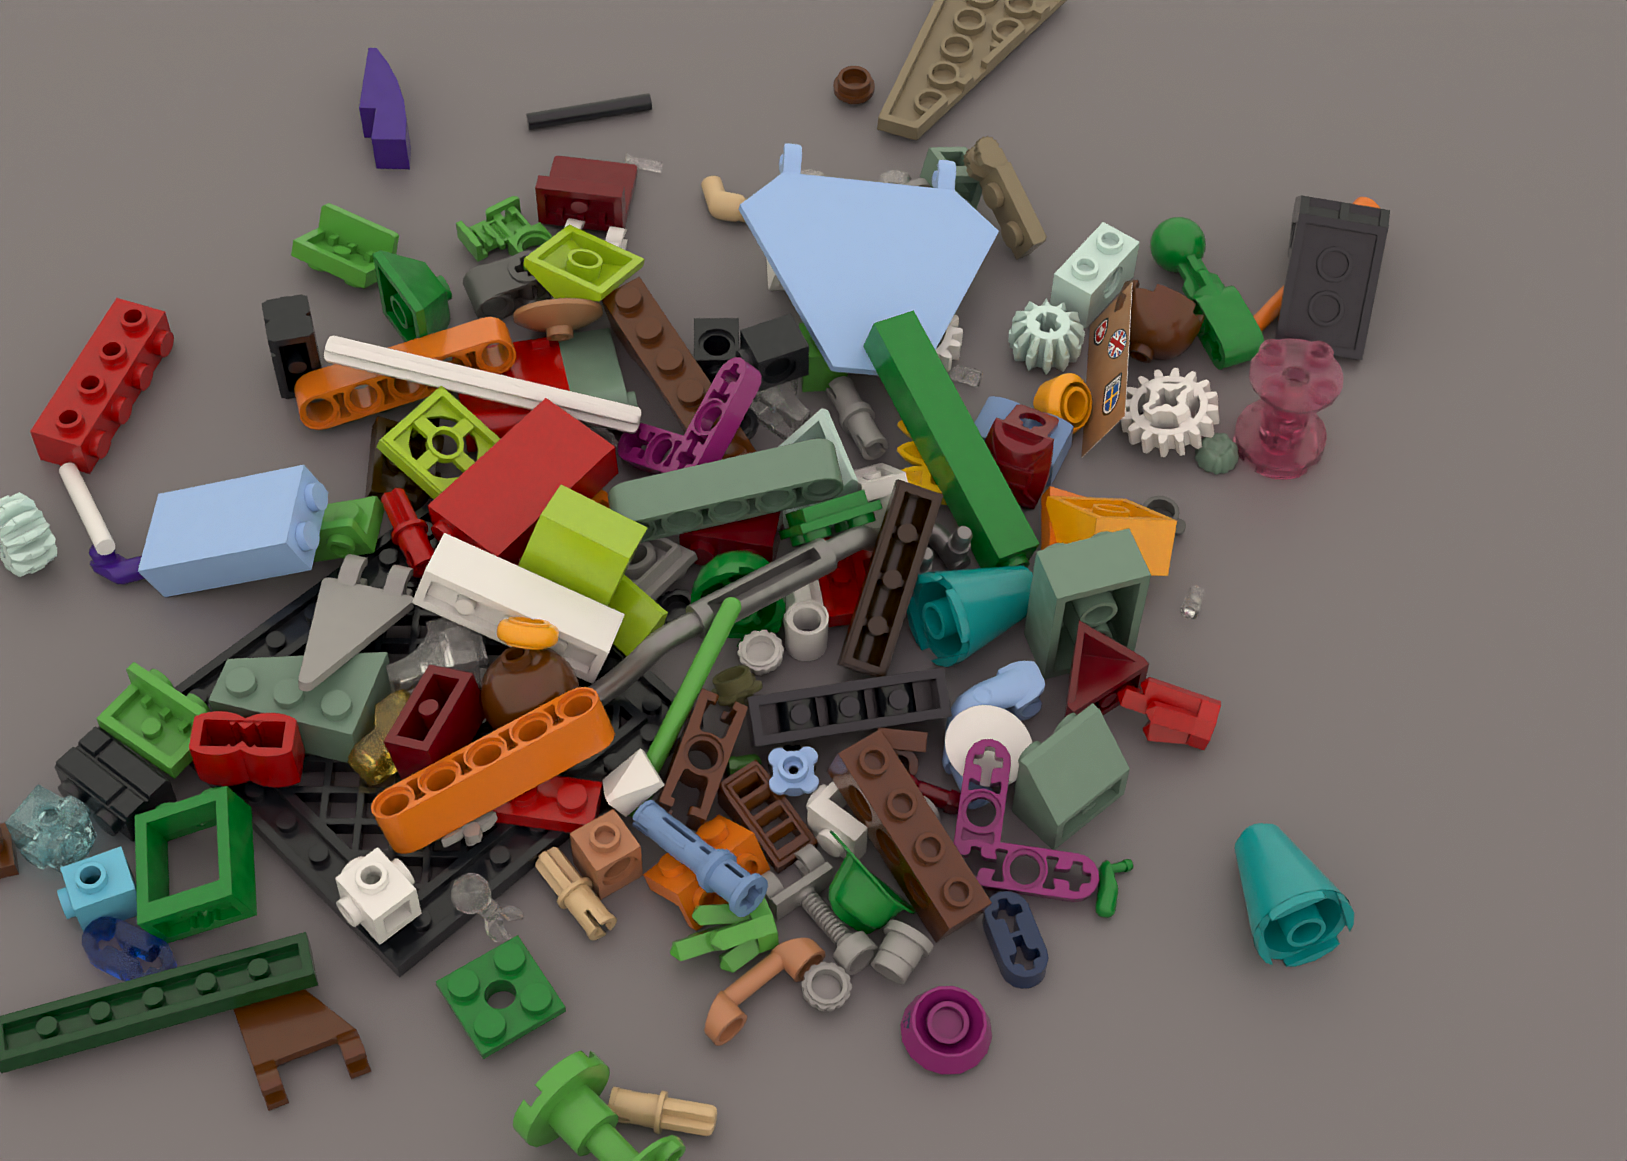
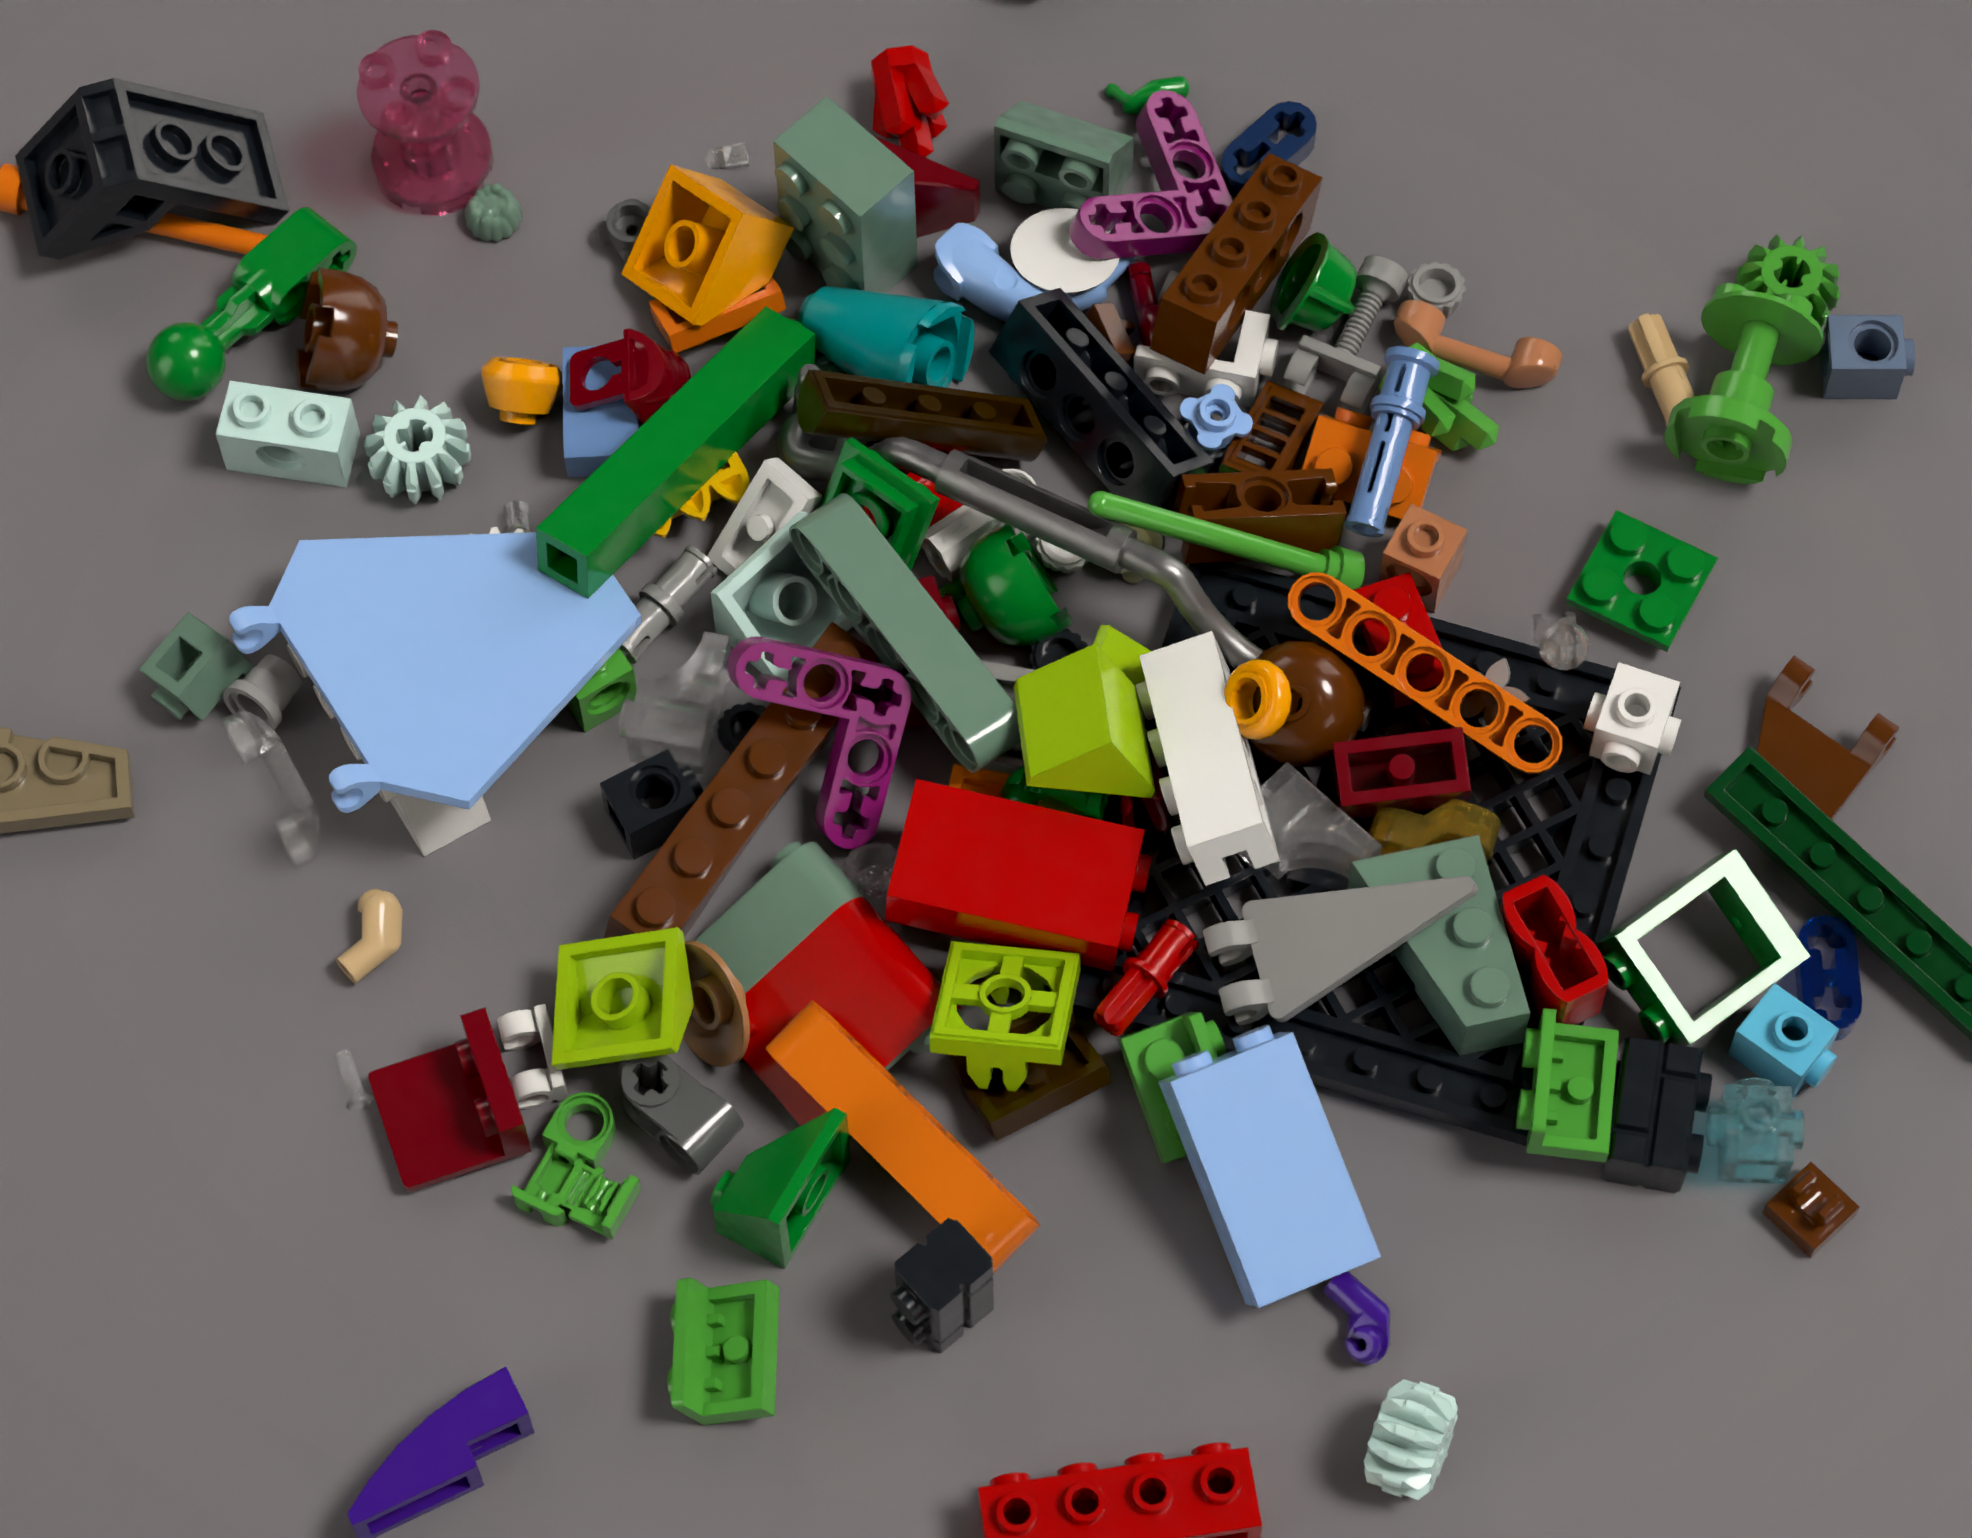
camera: 115 degrees left, 10 degrees up
(87, 509) = (1317, 1400): white bar -> none
(479, 383) = (896, 1002): white axle -> none
(574, 893) = (1480, 573): tan axle -> none
(589, 111) = (288, 1201): black bar -> none
(631, 783) = (1338, 553): white slope -> none
(775, 350) = (657, 690): black brick -> none
(854, 85) = (69, 880): reddish brown plate -> none
(900, 951) = (1357, 234): light grey piece -> none
(946, 1030) = (1395, 156): magenta hat -> none
(1005, 196) = (225, 567): dark tan hinge -> none
(1107, 370) = (446, 345): medium nougat sticker -> none
(1170, 412) = (482, 246): white gear -> none

